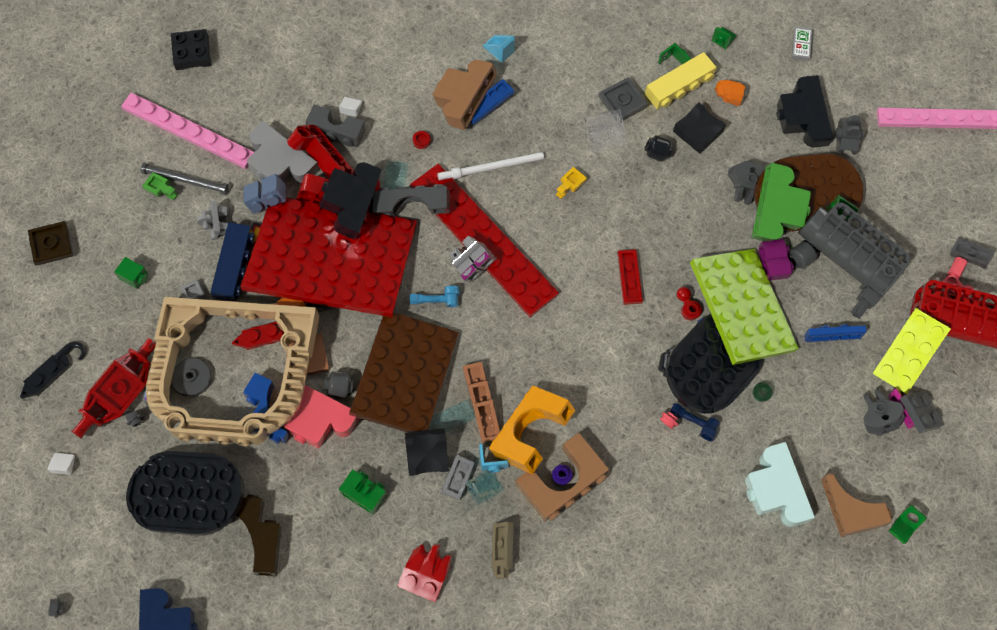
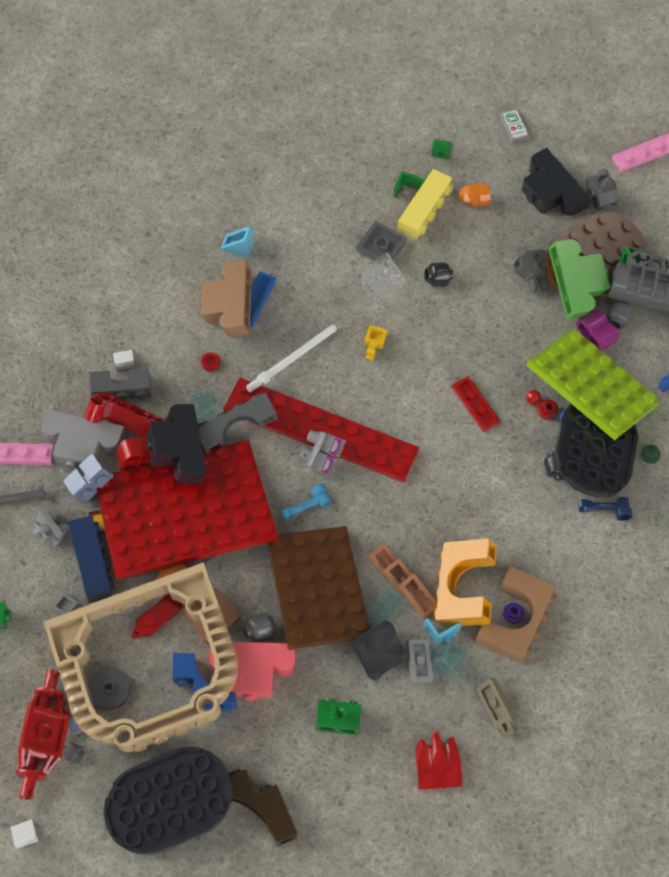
camera: 25 degrees left, 5 degrees down
(669, 420) = (583, 517): coral plate -> none
(699, 128) = (465, 240): black brick -> none

